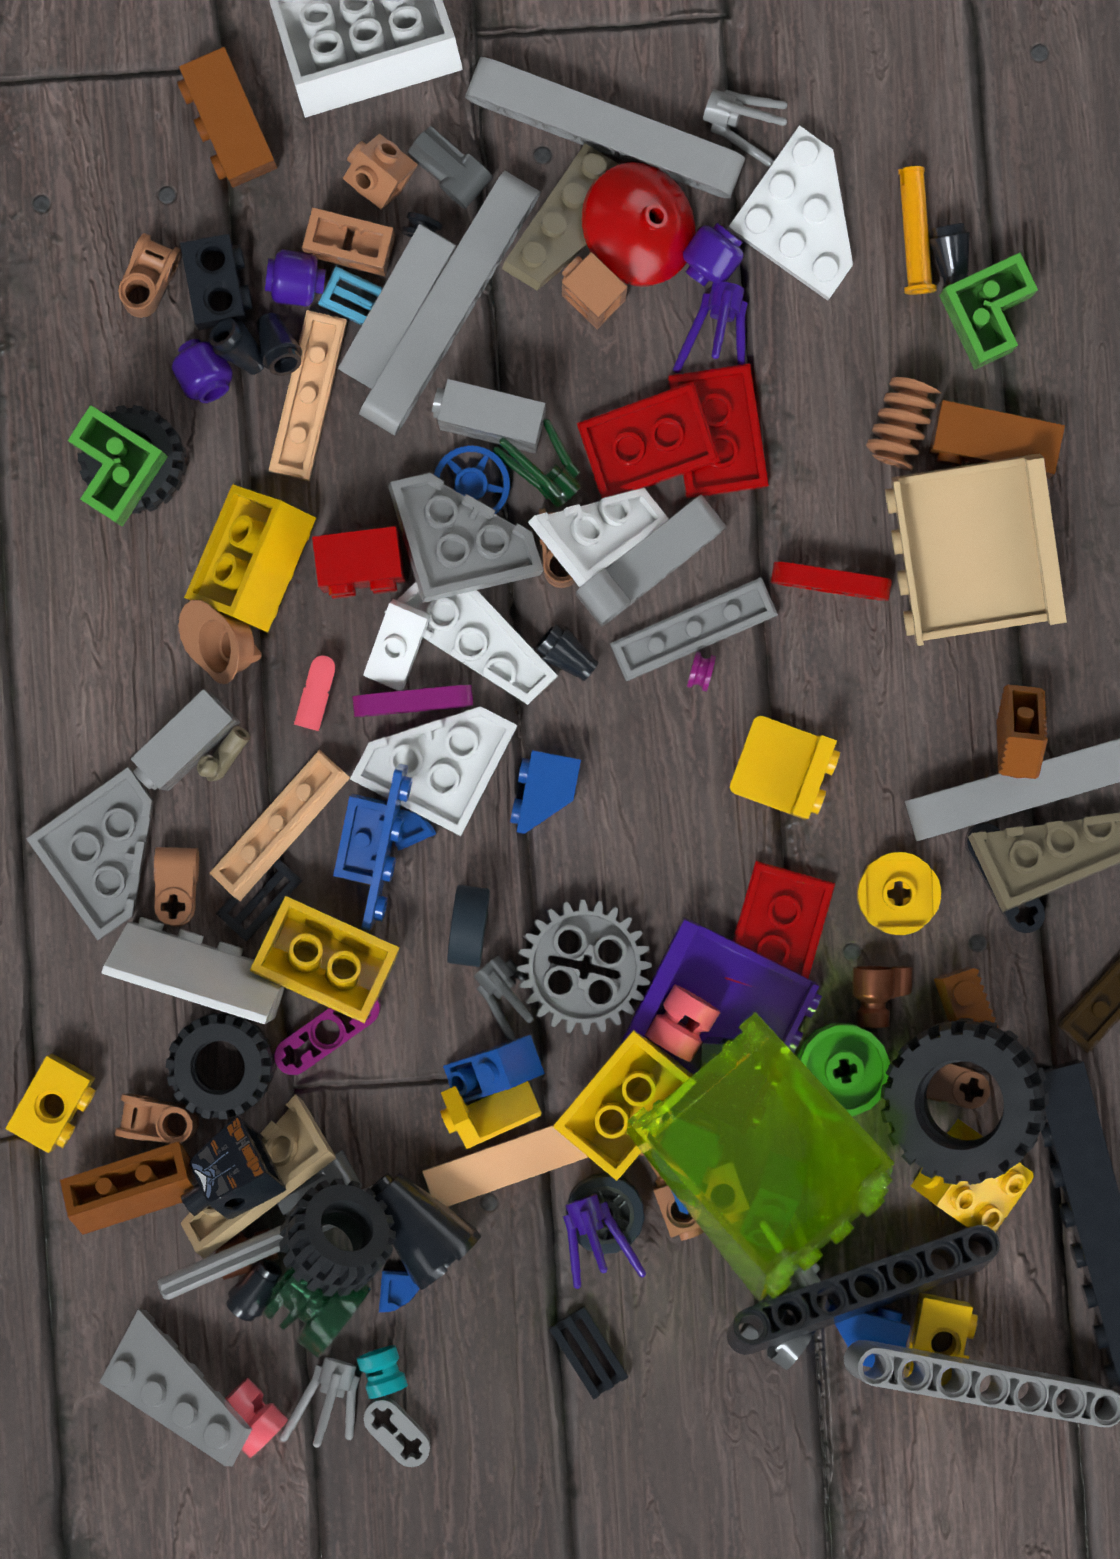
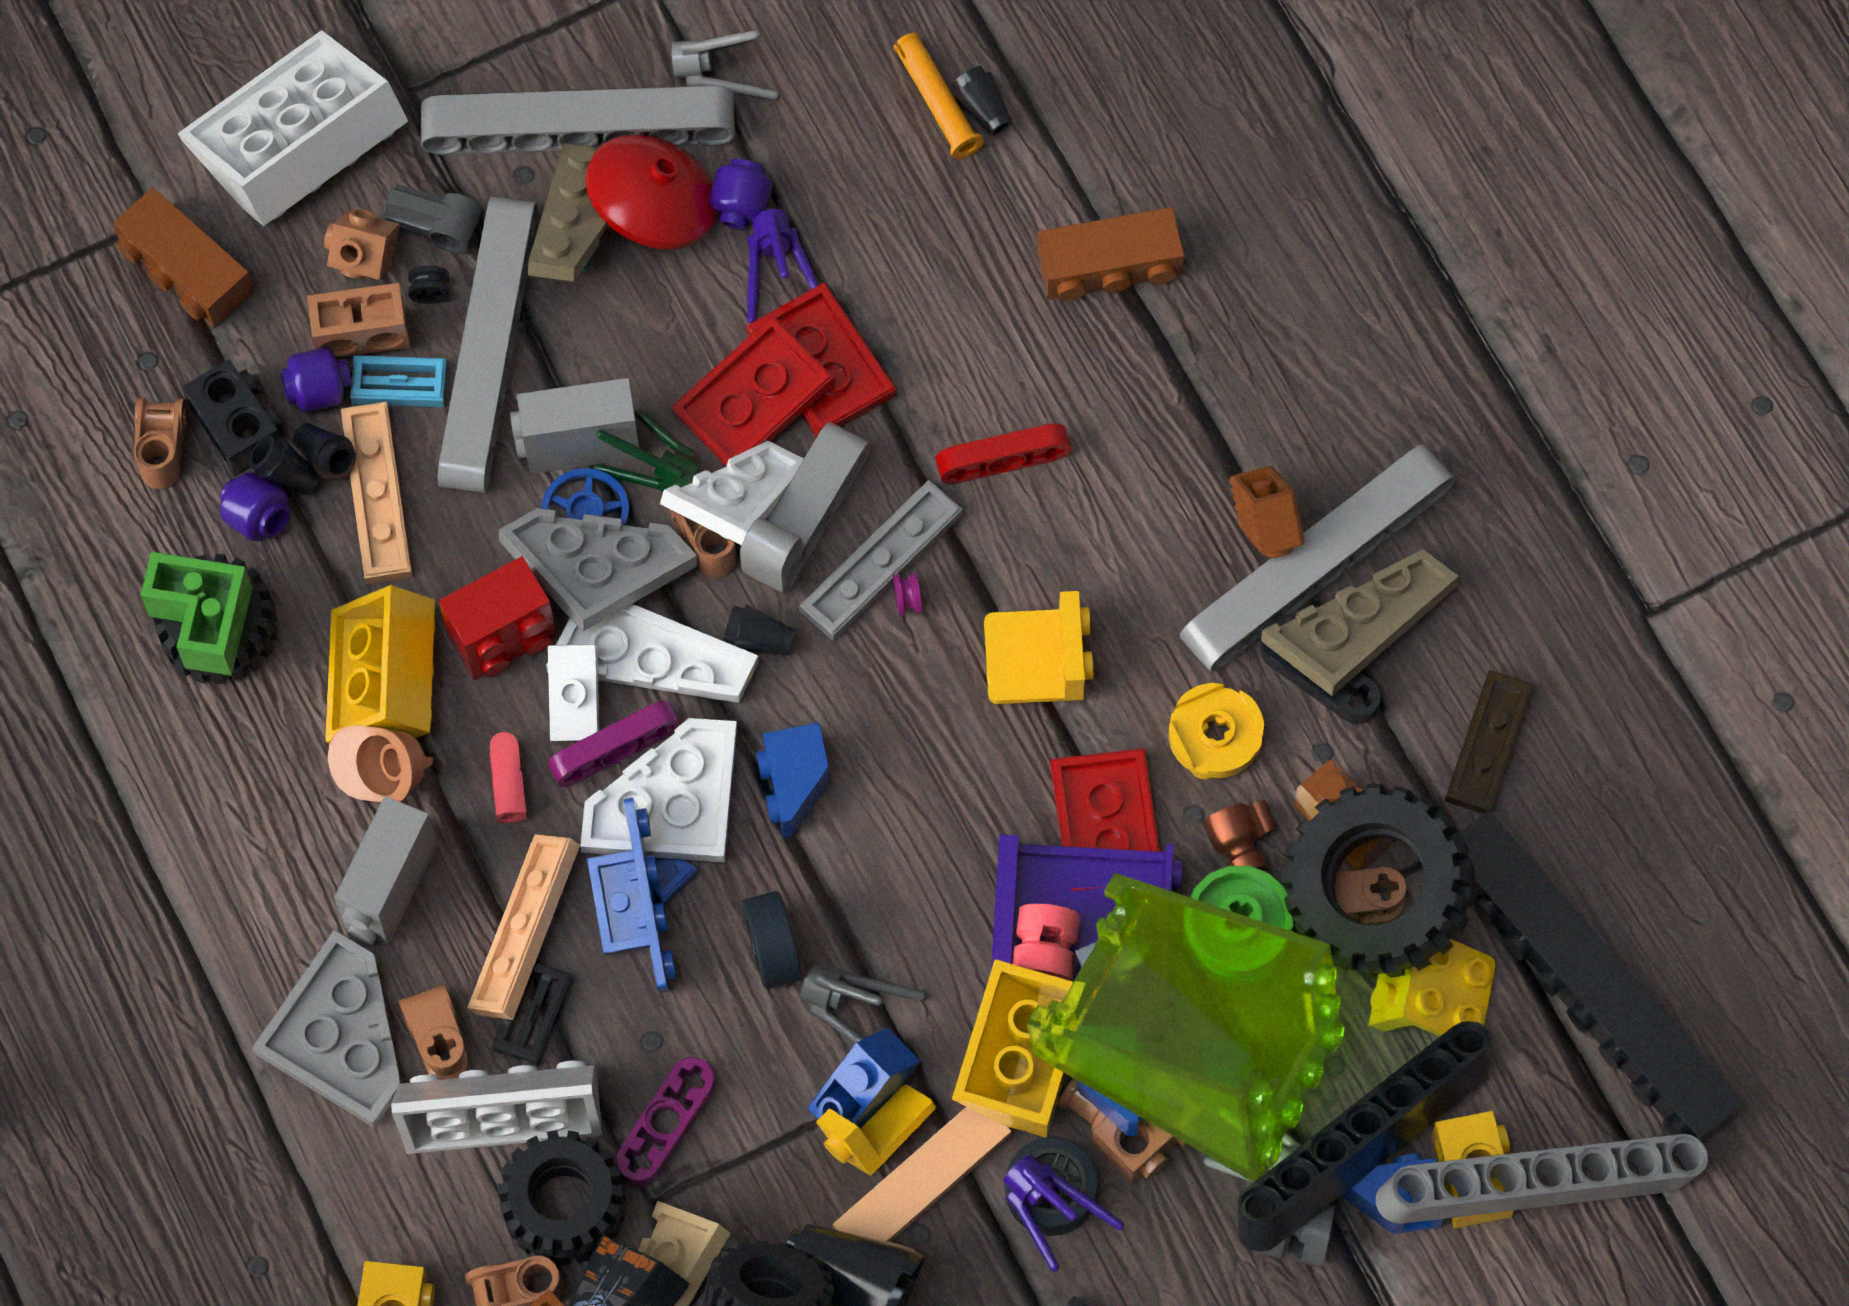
camera: 20 degrees left, 20 degrees down
(218, 764) = (432, 889): dark tan arm -> none
(325, 959) = (631, 1027): yellow slope -> none
(397, 305) = (433, 362): light grey tile -> none
(575, 1004) = (906, 898): light grey gear -> none
(592, 289) = (631, 266): nougat brick -> none
(800, 215) = (813, 128): white plate -> none
(901, 422) = (1005, 272): nougat piece -> none
(976, 548) = (1138, 358): tan panel -> none
(977, 308) = (1035, 134): bright green brick -> none

